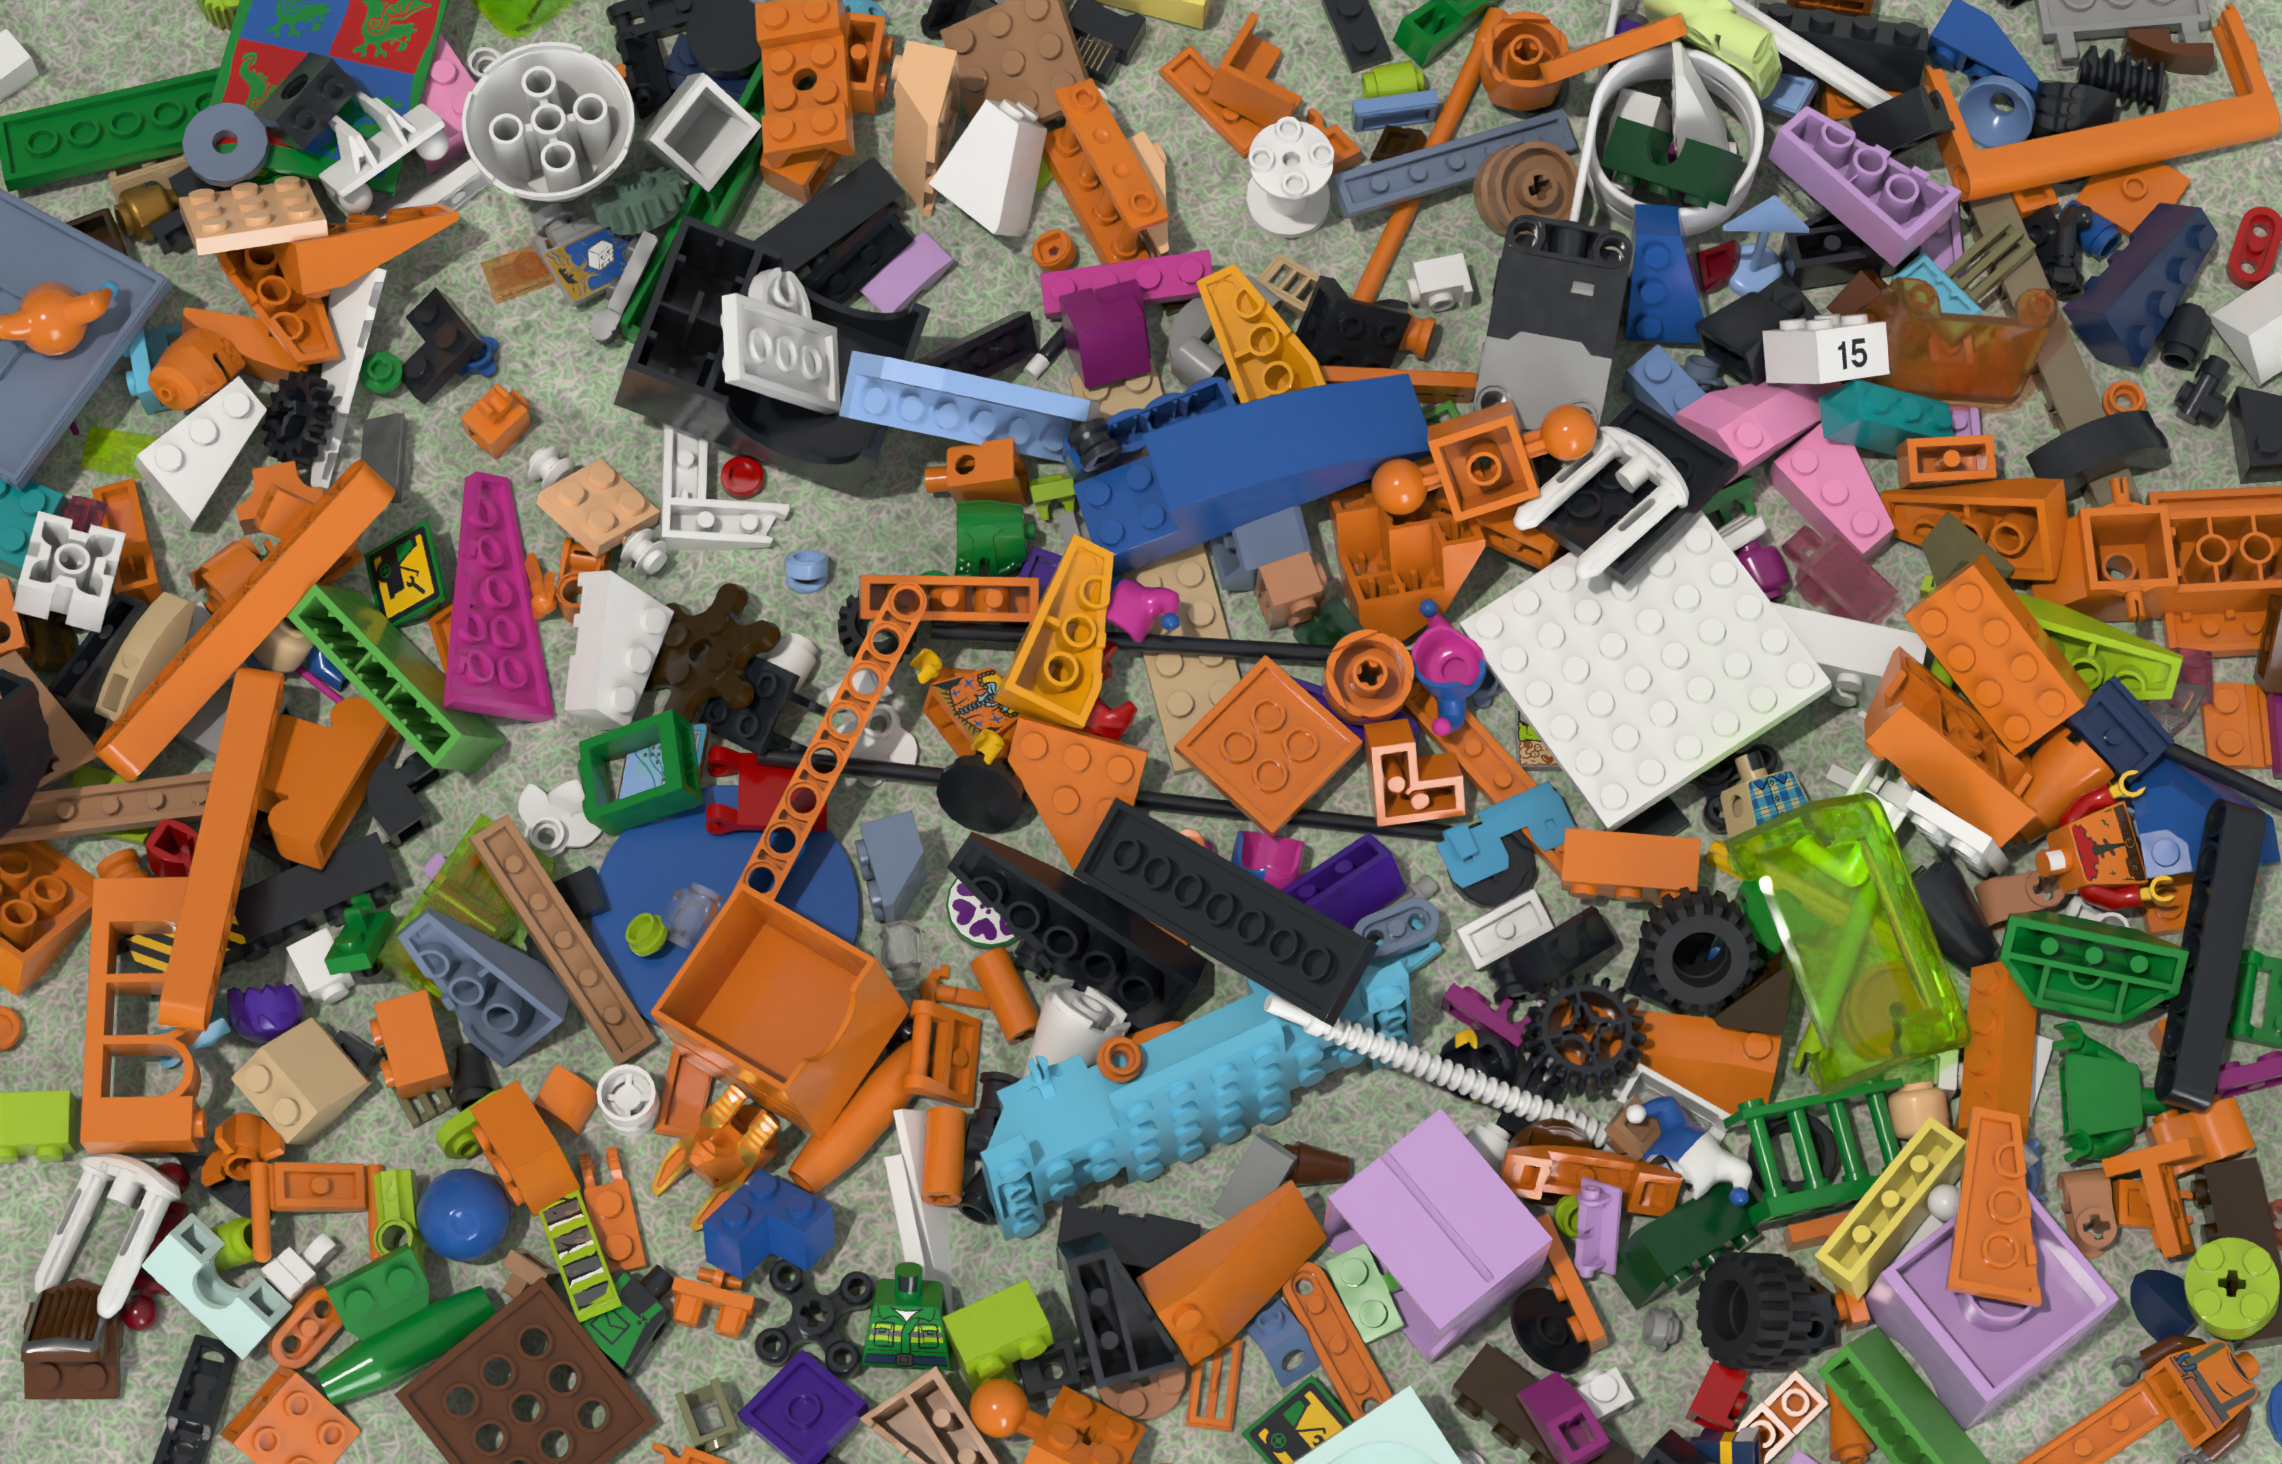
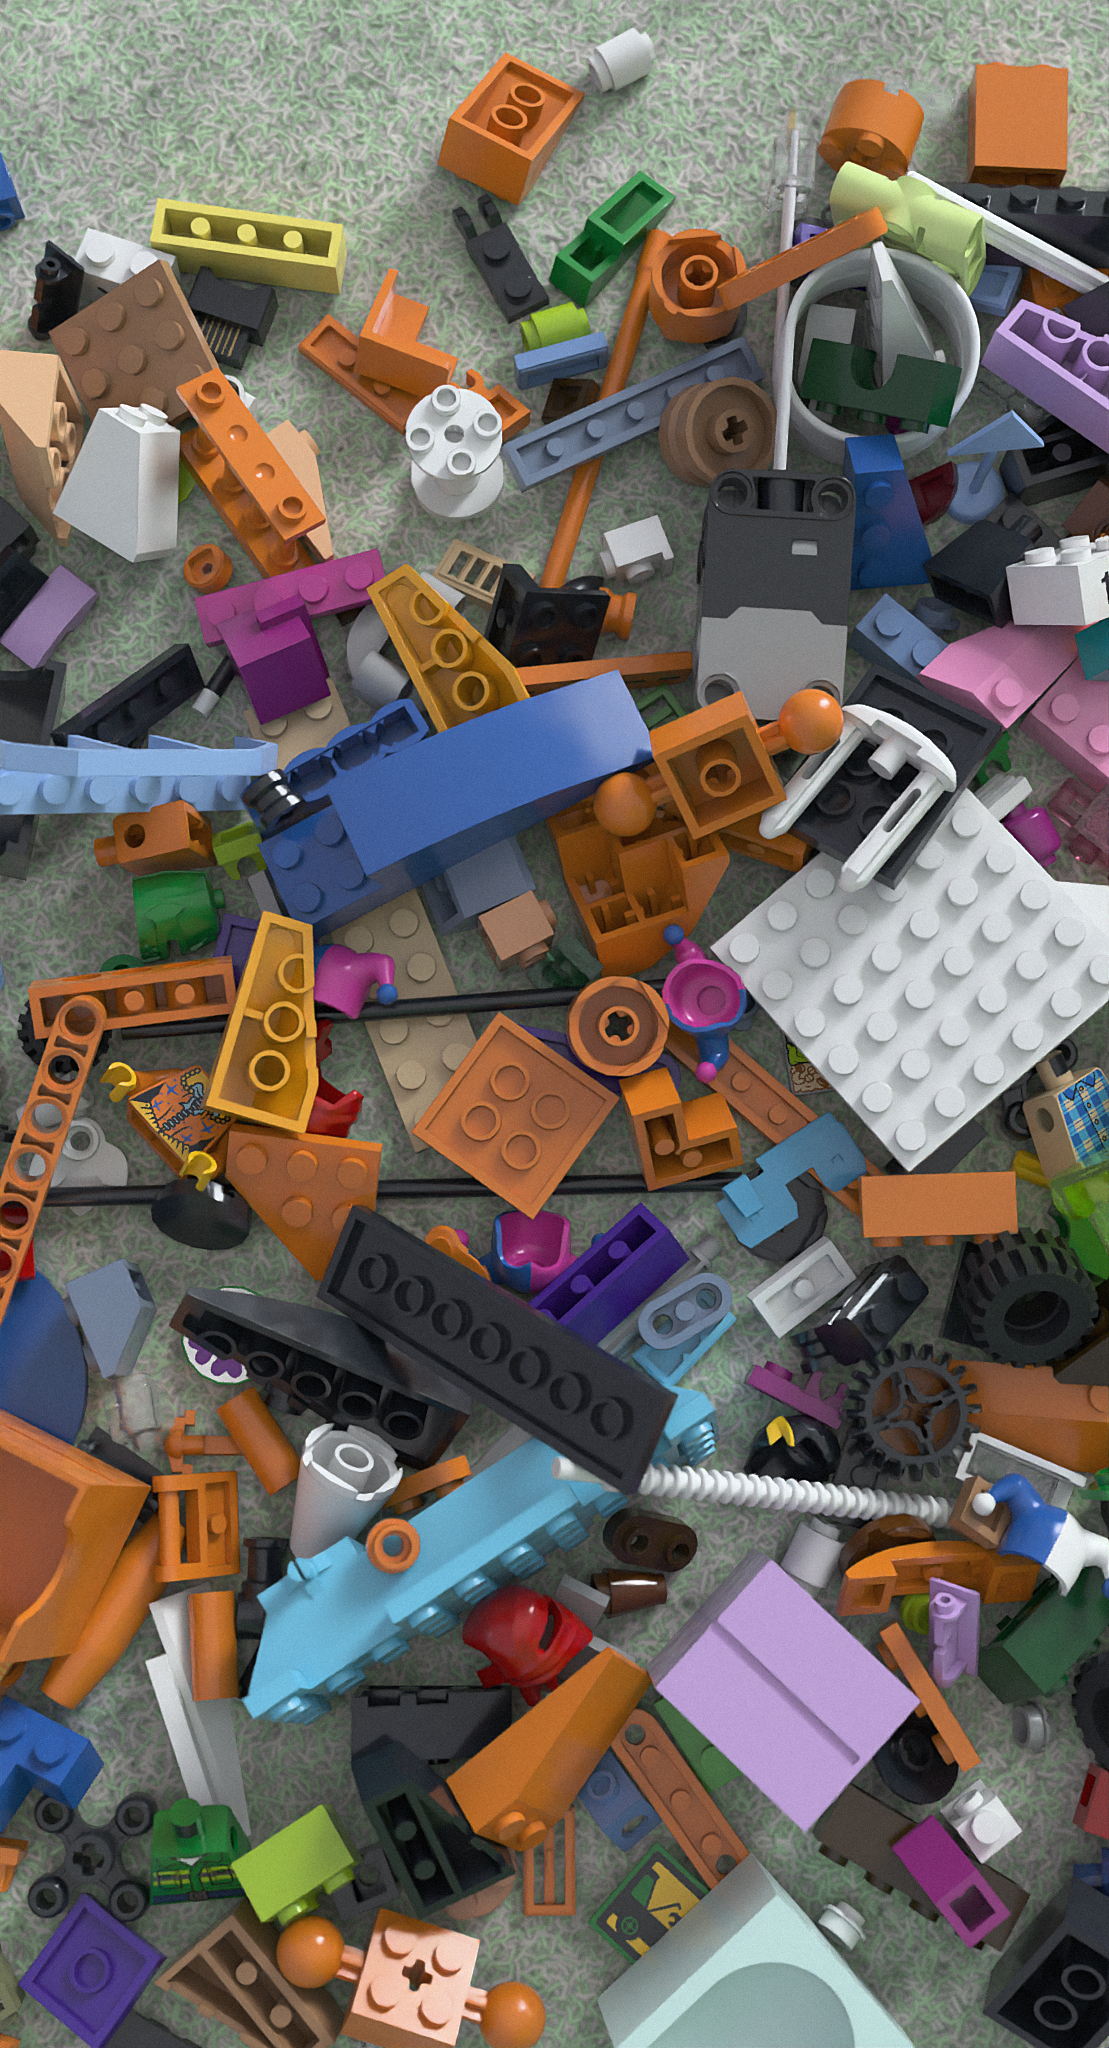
camera: 10 degrees left, 10 degrees up
(1208, 1165) = (508, 1632): none -> red piece
(1343, 1121) = (661, 1541): none -> dark brown plate

